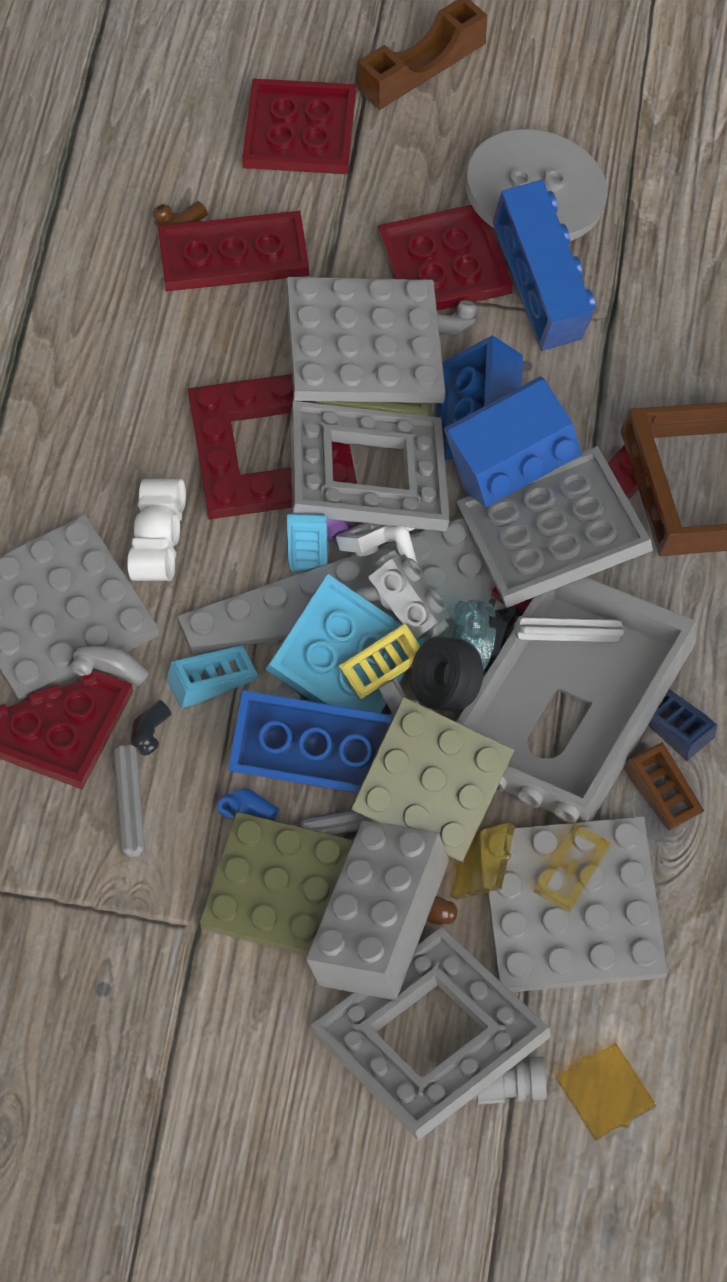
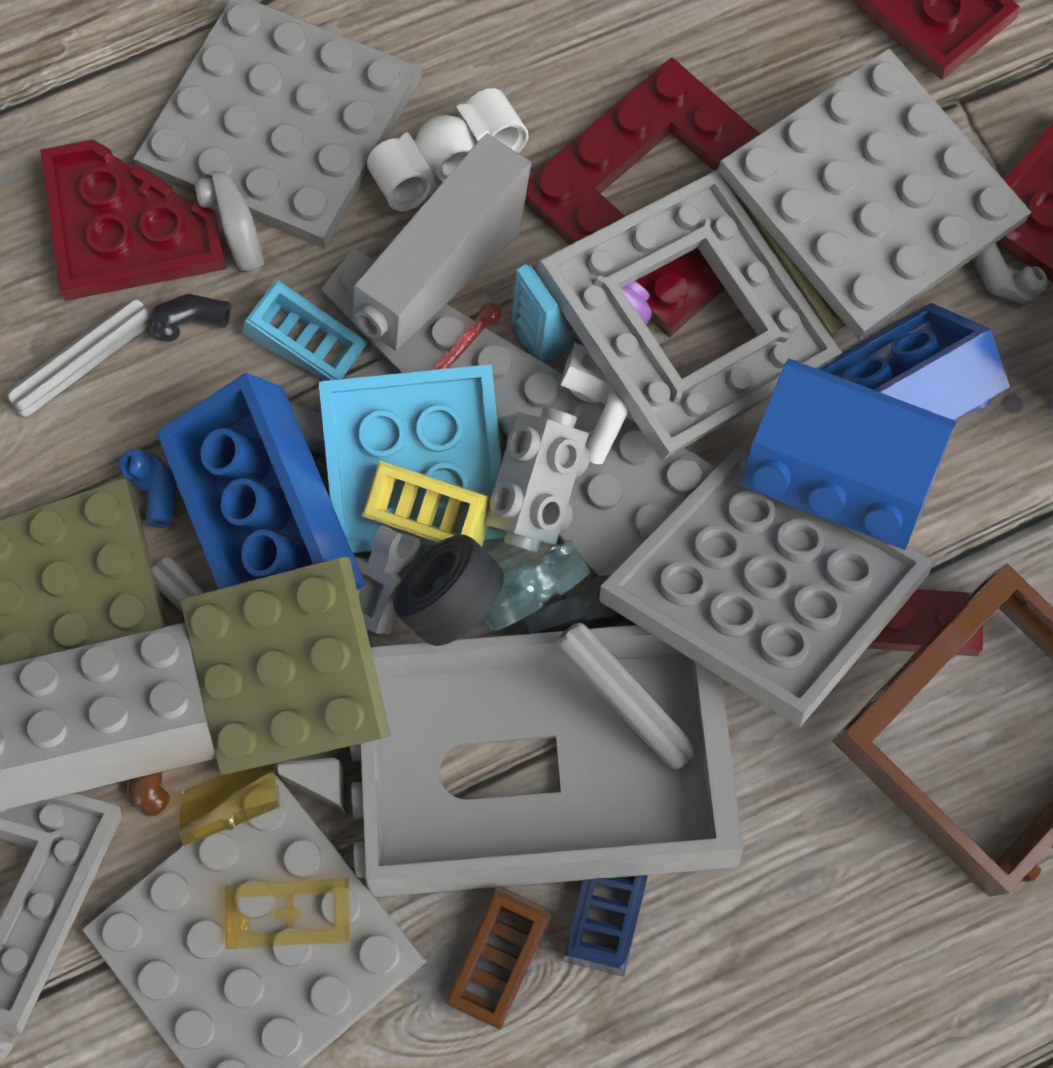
camera: 60 degrees right, 10 degrees up
(227, 556) = (444, 243): none -> light grey slope
(282, 568) = (489, 315): none -> clear red hinge
(505, 810) = (319, 780): none -> light grey slope

